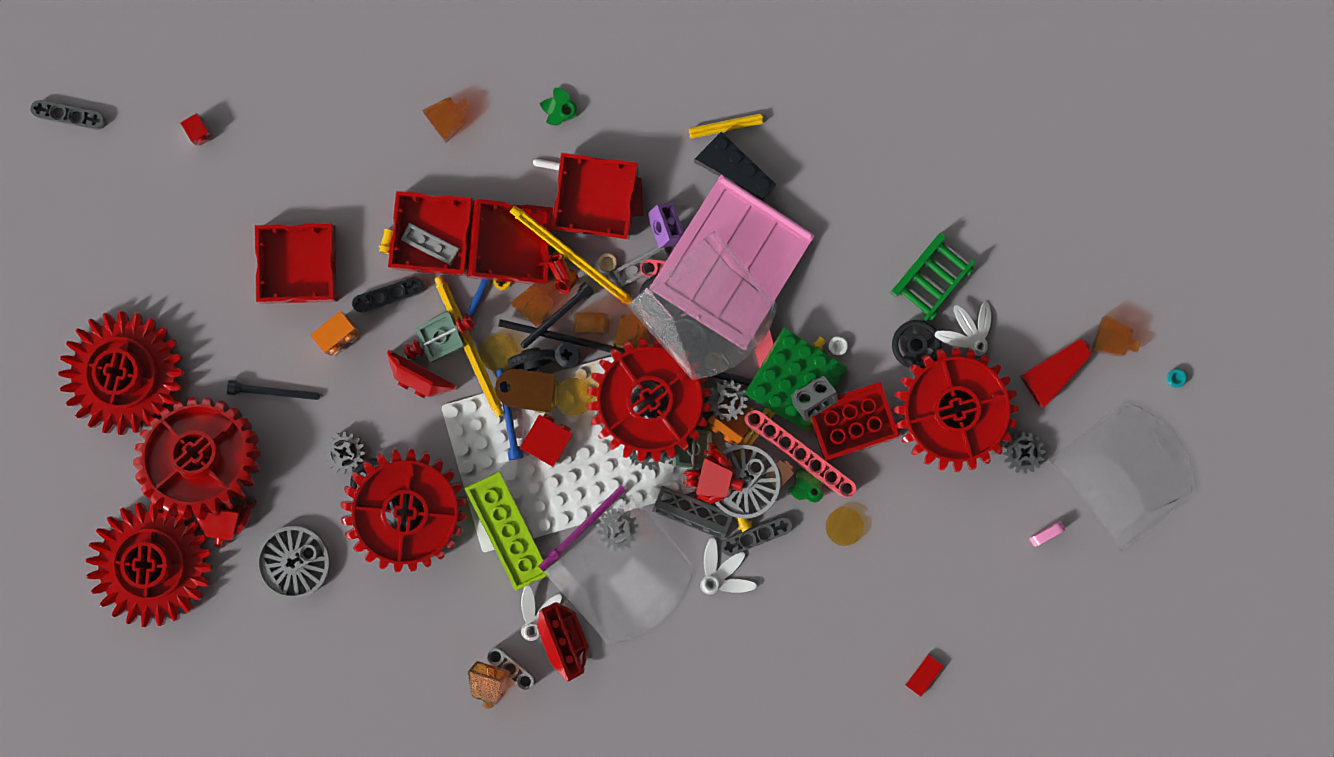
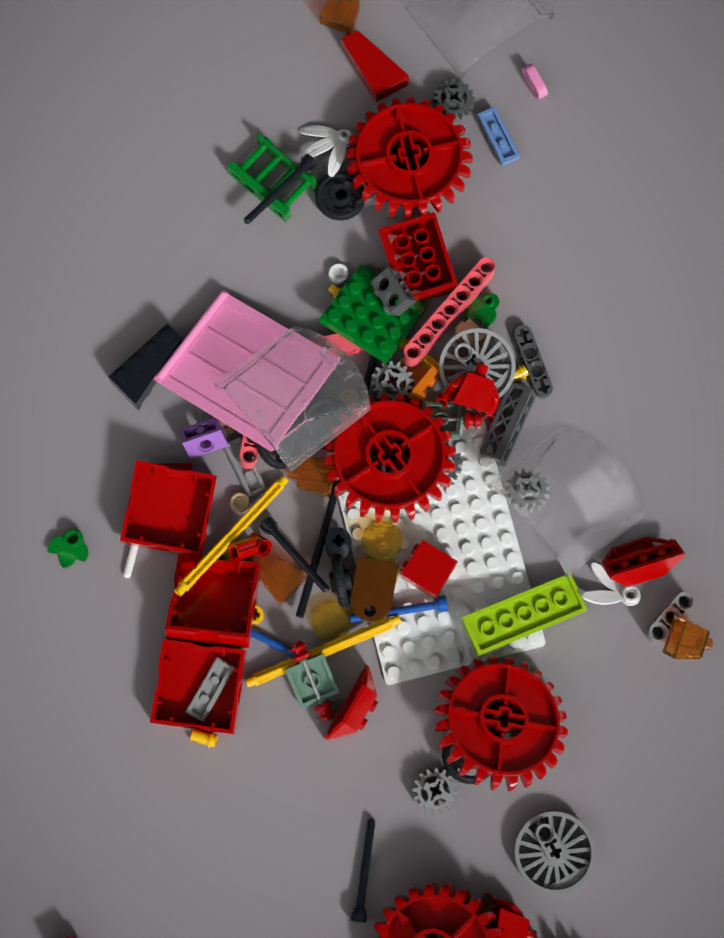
camera: 90 degrees left, 10 degrees down
(295, 263) = (223, 840): red tile -> none
(335, 334) = (304, 795): orange brick -> none
(387, 291) = (261, 739): black beam -> none
(447, 117) = (71, 667): clear orange torso -> none
(554, 555) = (550, 565): magenta bar -> none
(591, 323) = (304, 522): clear orange torso -> none
(717, 577) = (574, 402): white plant -> none
(726, 125) = (101, 375): yellow axle -> none
(844, 526) = (524, 275): clear yellow tile -> none
(924, 675) = (675, 204): red tile -> none
(943, 308) = (307, 163): none -> black piece
(987, 498) = (498, 136): none -> medium blue plate

